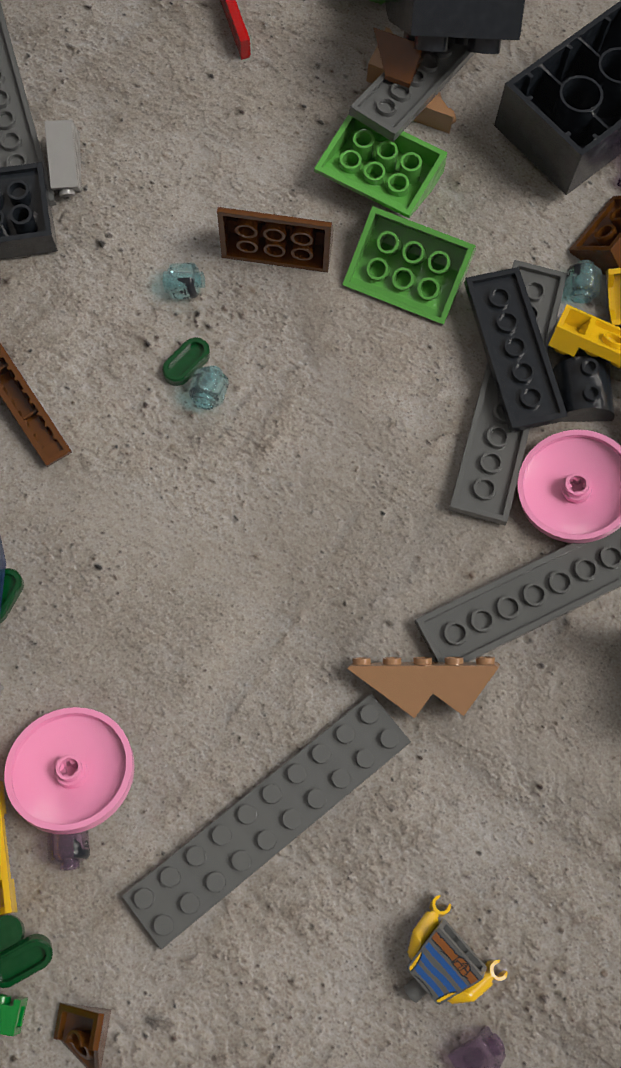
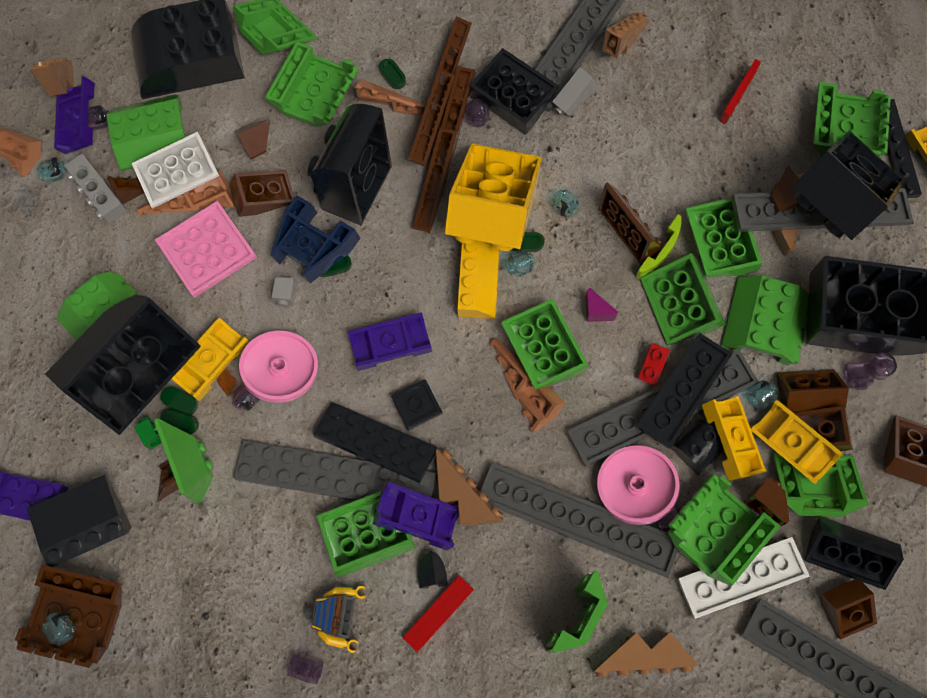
camera: 55 degrees right, 0 degrees up
(27, 853) = (227, 382): none -> clear orange slope
(49, 52) = (623, 34): none -> medium nougat slope
(86, 991) = (186, 460): none -> bright green slope
(109, 340) = (493, 197): none -> yellow brick
(162, 611) = (389, 341): none -> dark purple piece
(181, 450) = (478, 280): none -> yellow slope
(268, 646) = (416, 404): none -> black plate
(271, 733) = (375, 442): none -> black plate
(326, 208) = (650, 264): none -> lime slope
(332, 442) = (545, 345): none -> bright green slope
(338, 354) = (598, 309): none -> magenta slope
(374, 836) = (355, 541): none -> bright green slope
(376, 507) = (538, 405): none -> nougat wedge
(408, 758) = (416, 515): none -> dark purple piece
(454, 354) = (653, 364): none -> red plate
(484, 798) = (432, 571): none -> black brick
(502, 205) = (767, 318): none -> bright green slope
(539, 834) = (438, 614): none -> red tile

